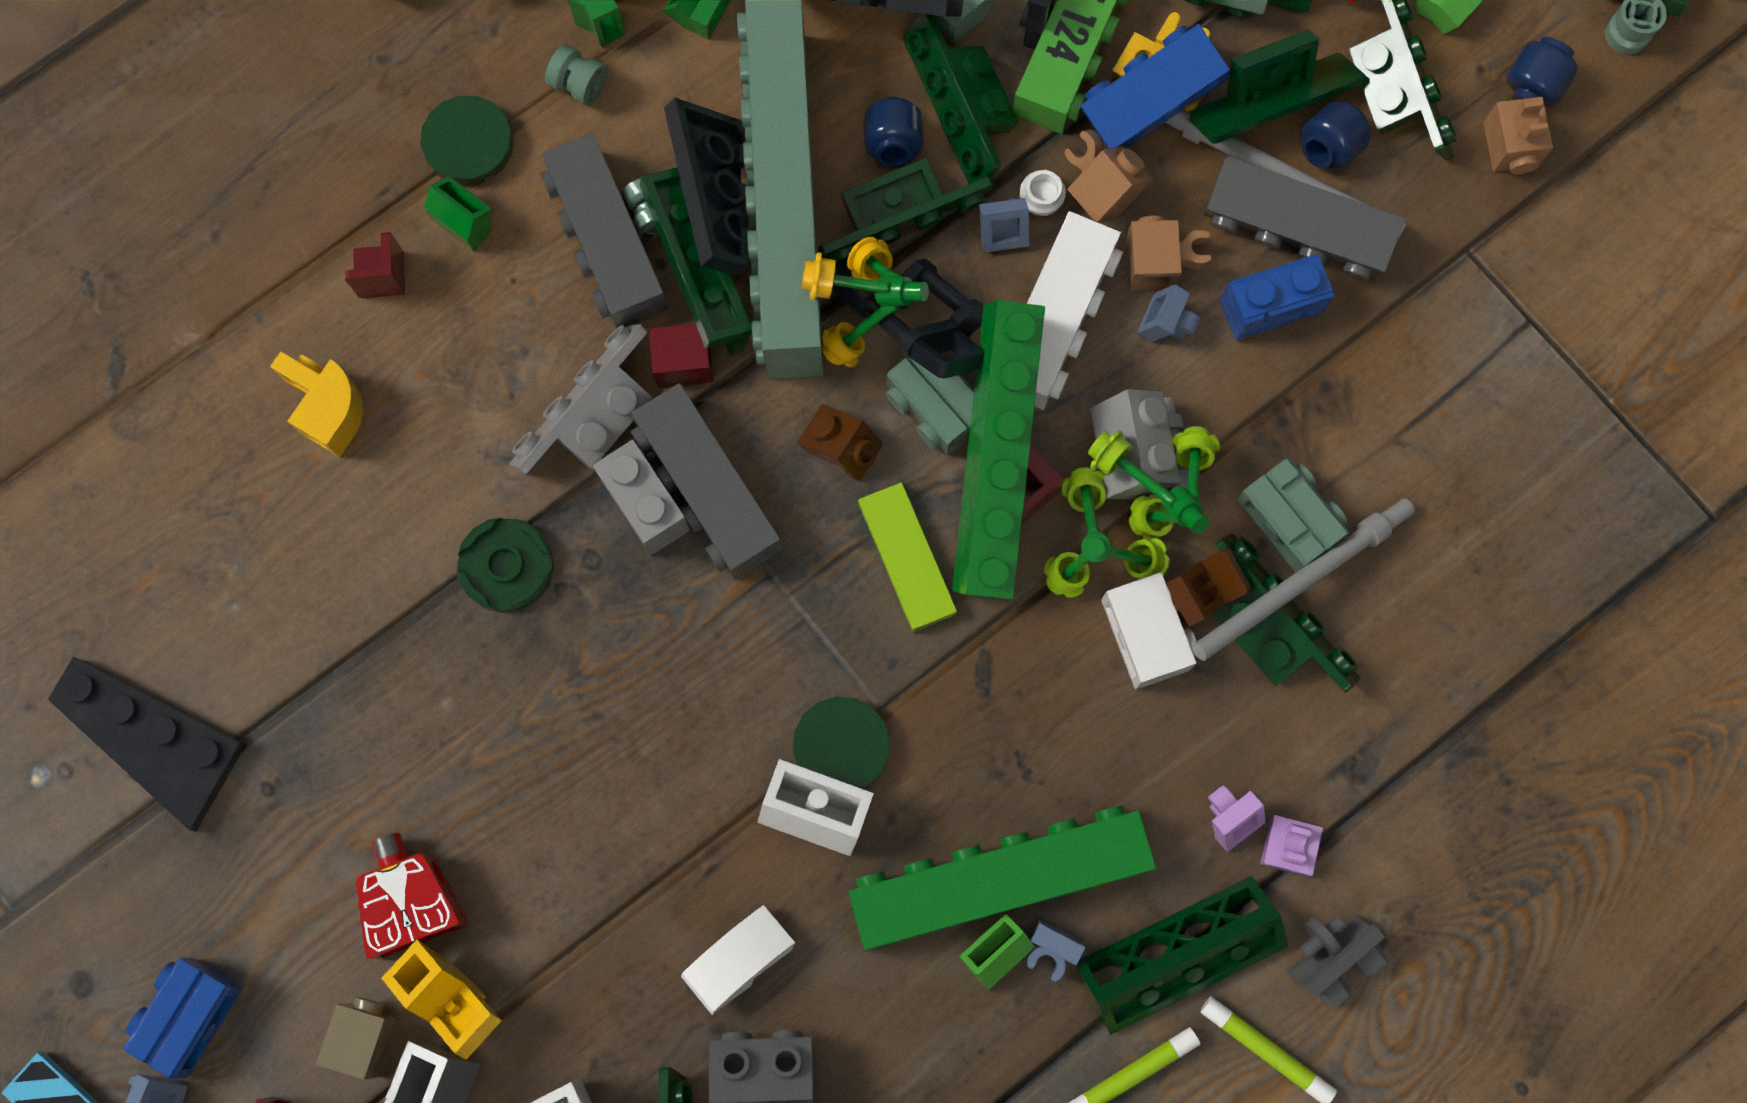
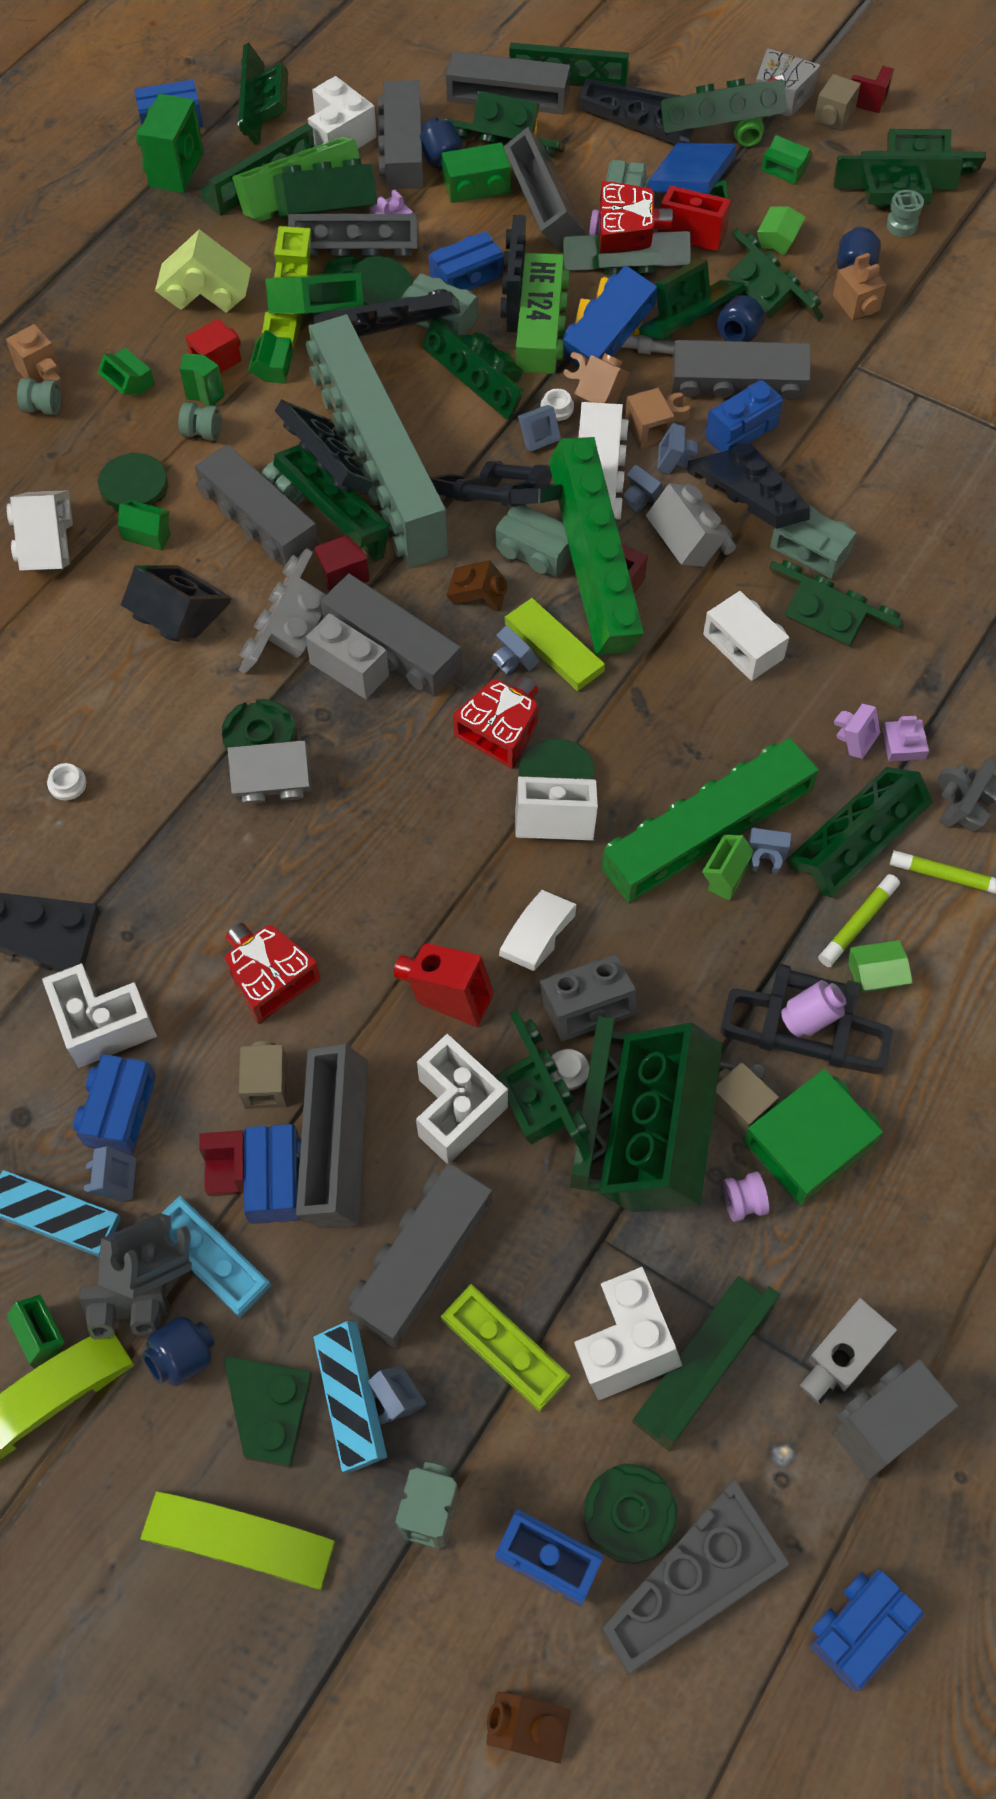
camera: 20 degrees left, 15 degrees down
(179, 908) = (95, 1023): none -> white brick
(256, 559) = (66, 781): none -> white plate
(324, 184) = (40, 529): none -> white brick
(332, 402) = (85, 662): yellow brick -> none
(378, 269) = (96, 576): dark red panel -> none
(443, 997) = (317, 1021): yellow brick -> none
(460, 341) = (173, 600): none -> black slope
(493, 634) = (269, 771): none -> light grey brick
(613, 1010) = (448, 981): none -> red torso
(798, 650) = (499, 720): none -> red torso
(850, 558) = (513, 652): none -> sand blue tile
(870, 272) = (459, 461): plant -> none
(893, 131) = (439, 395): dark blue head -> none
(899, 202) = (463, 432): dark green bracket -> none
(1069, 570) = (674, 616): lime plant -> none
(1103, 366) = (643, 489): none -> sand blue tile
(1159, 511) = (732, 512): plant -> none
(1207, 586) = (777, 588): reddish brown bracket -> none
(1245, 409) = (752, 481): none -> black wing
(1369, 532) = (869, 536): light grey bar -> none

